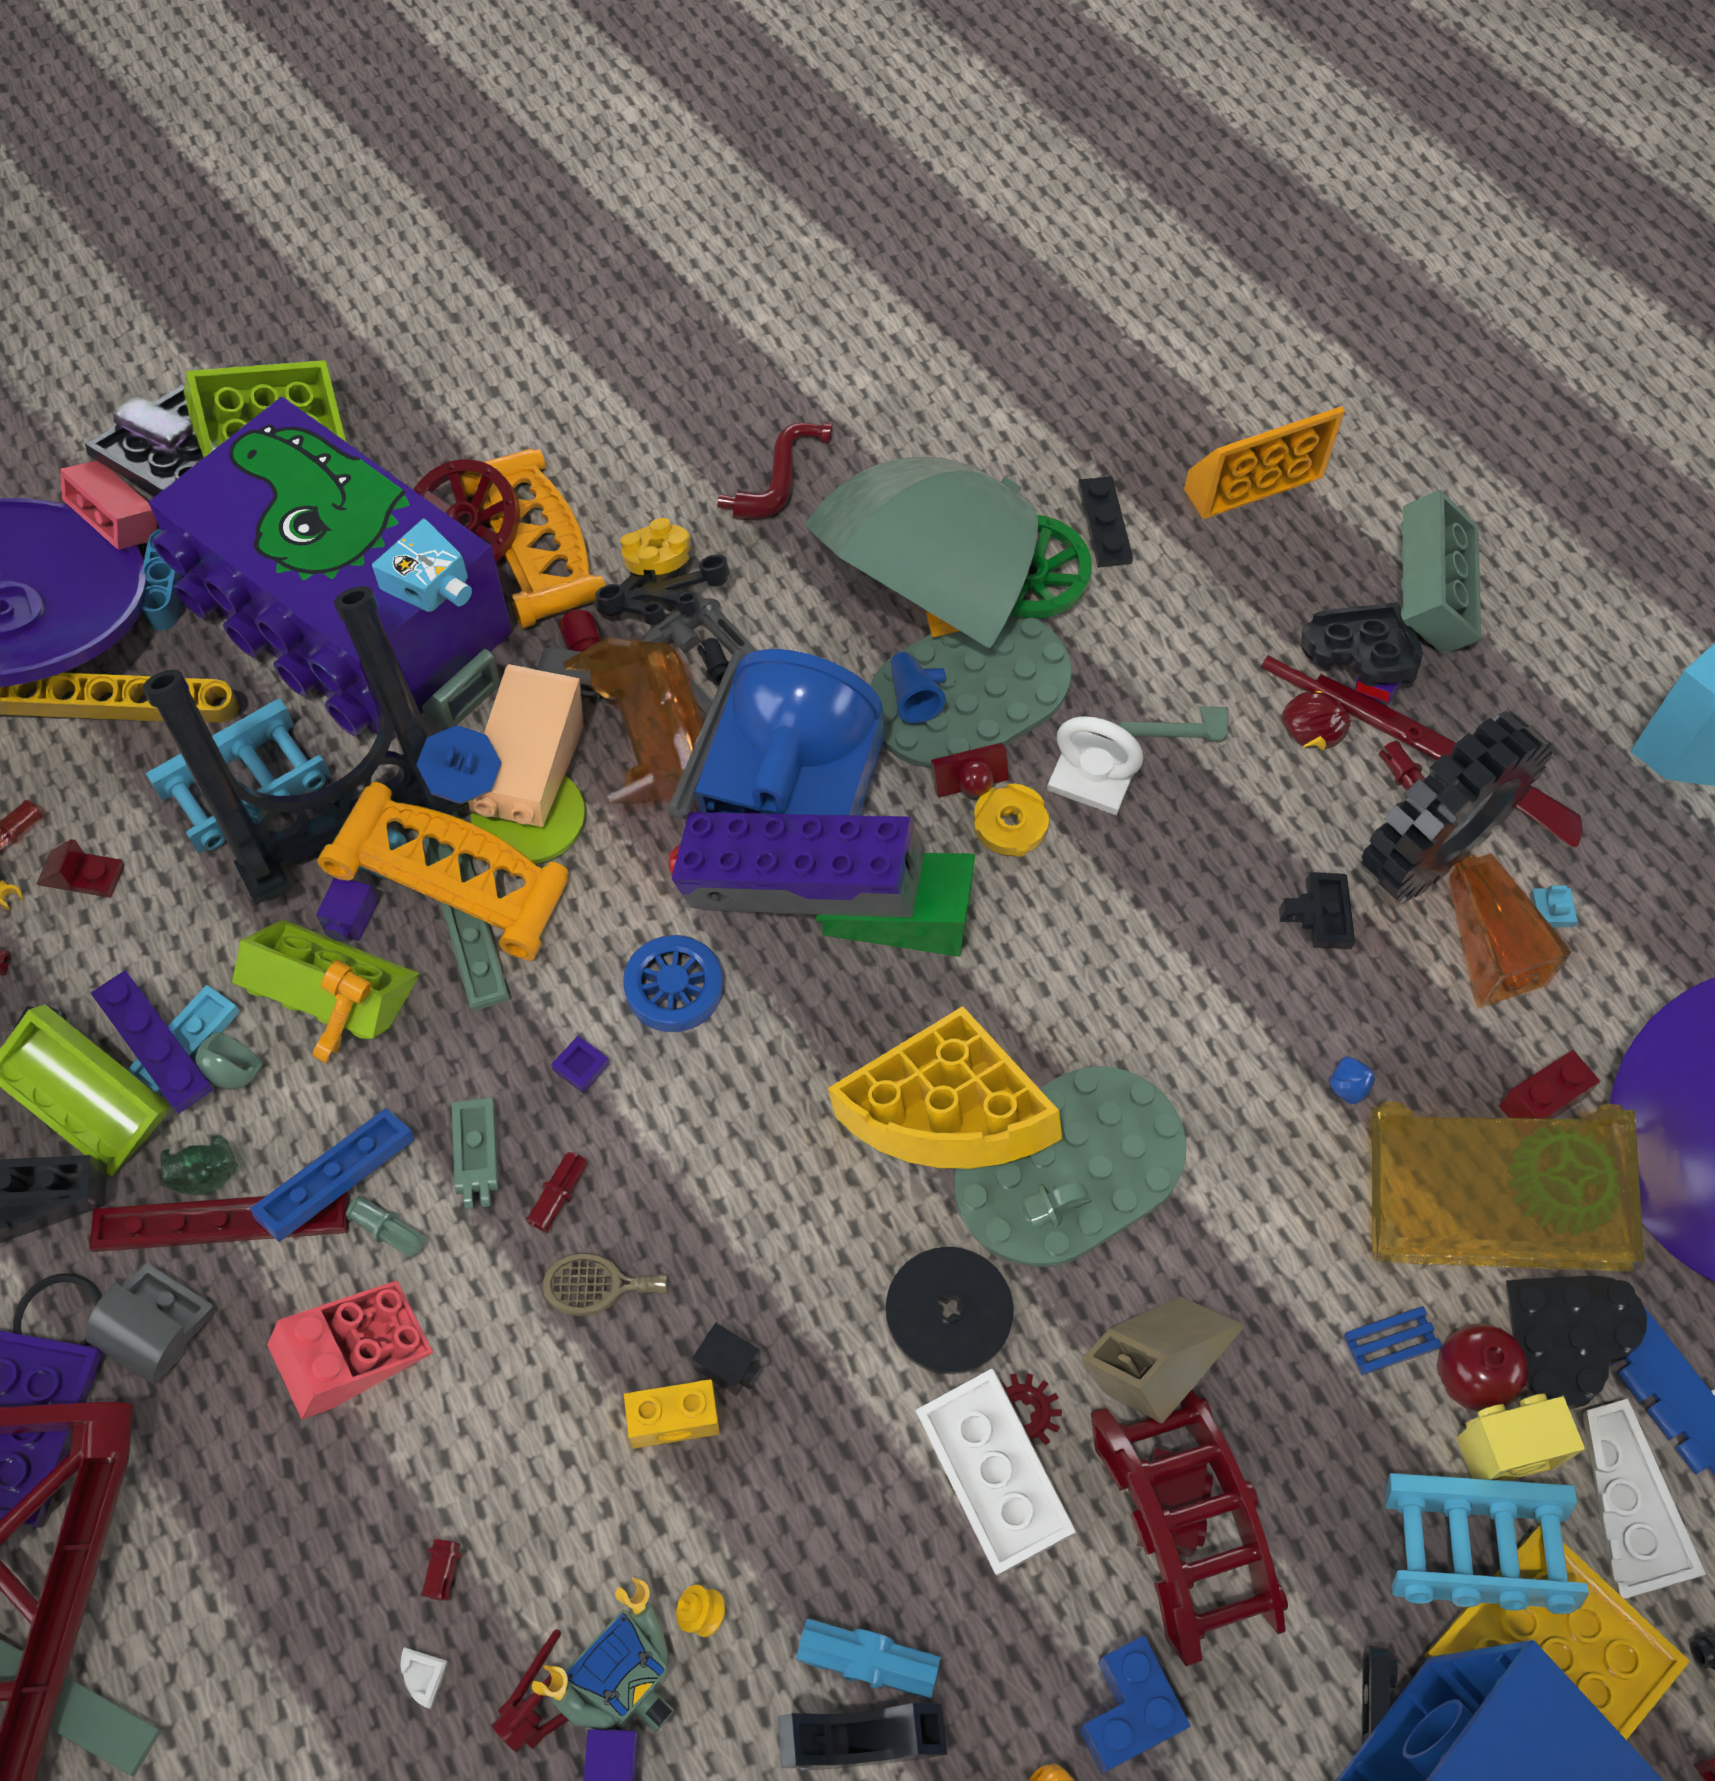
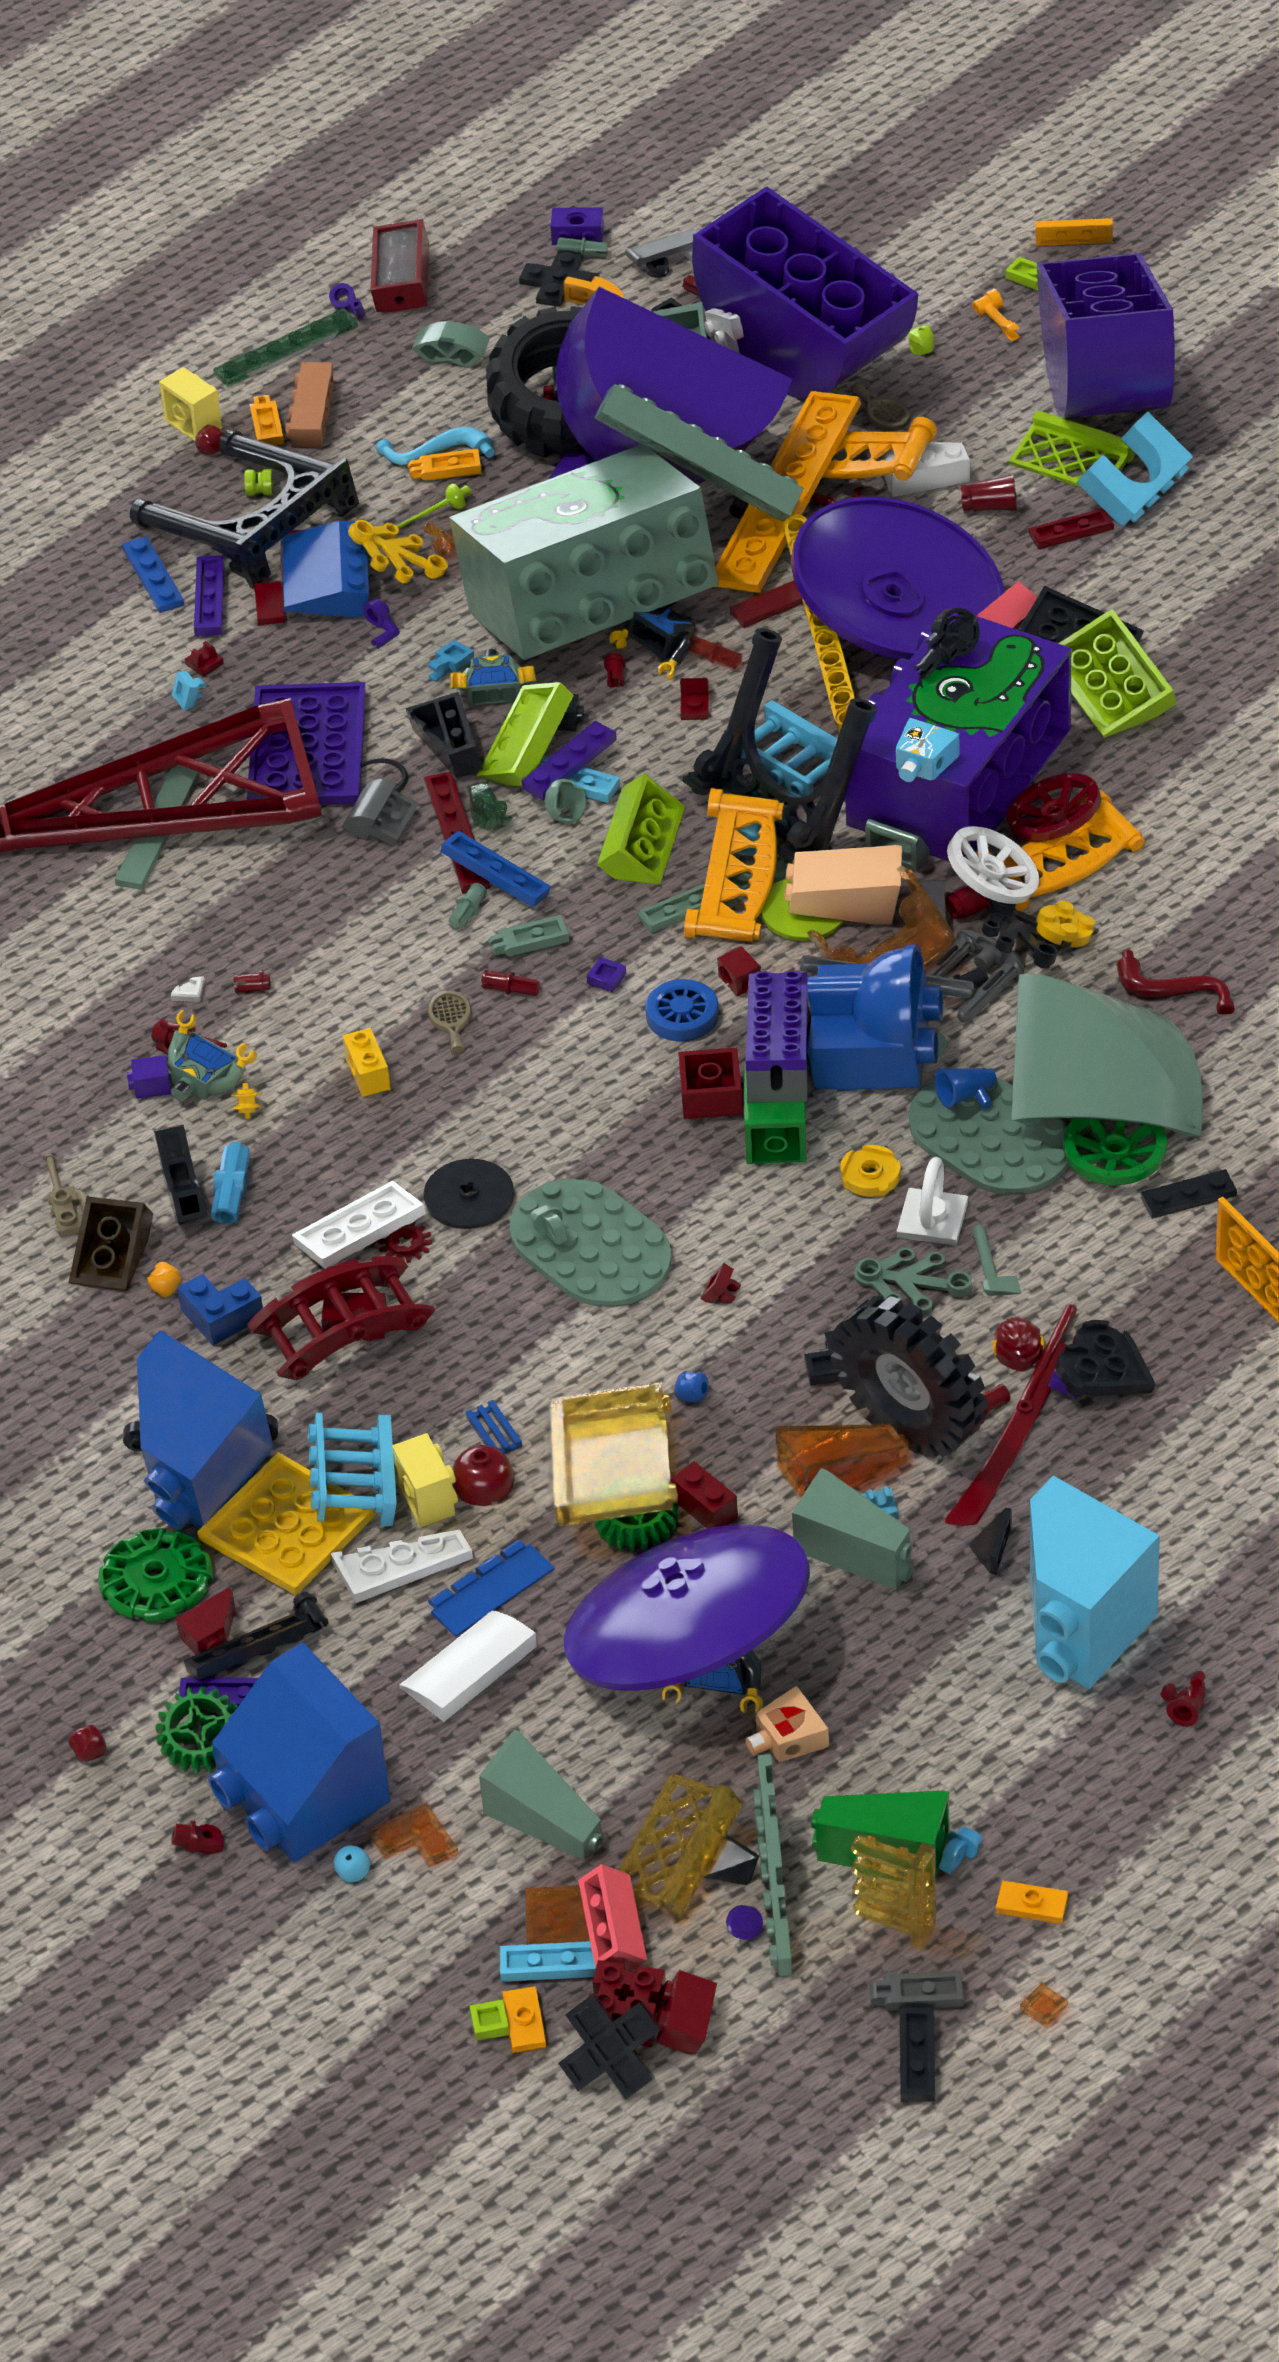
camera: 85 degrees right, 15 degrees down
(153, 422) = (1080, 613): tile -> none
(227, 492) = (949, 639): none -> black pin
(346, 909) = (694, 830): dark purple brick -> none
(346, 1347) = (382, 905): coral slope -> none
(348, 989) = (621, 823): light orange brick -> none
(458, 764) = (806, 839): blue piece -> none
(560, 594) = (988, 873): none -> white wheel
(626, 902) = (735, 969): none -> dark red brick
(727, 1360) = (408, 1083): black brick -> none
(832, 966) = (710, 1083): none -> dark red brick
(947, 1100) = (617, 1153): yellow brick -> none
(970, 771) = (905, 1138): dark red tile -> none
(1160, 1355) = (449, 1286): dark tan slope -> none
(1180, 1020) = (719, 1284): none -> dark red tile
(1193, 814) = (911, 1277): none -> sand green plant
(1441, 572) = (1182, 1395): sand green brick -> none
(1574, 1332) = (515, 1521): black plate -> none
(1623, 799) = (992, 1541): none -> black slope
(1627, 936) = (852, 1532): none -> sand green slope

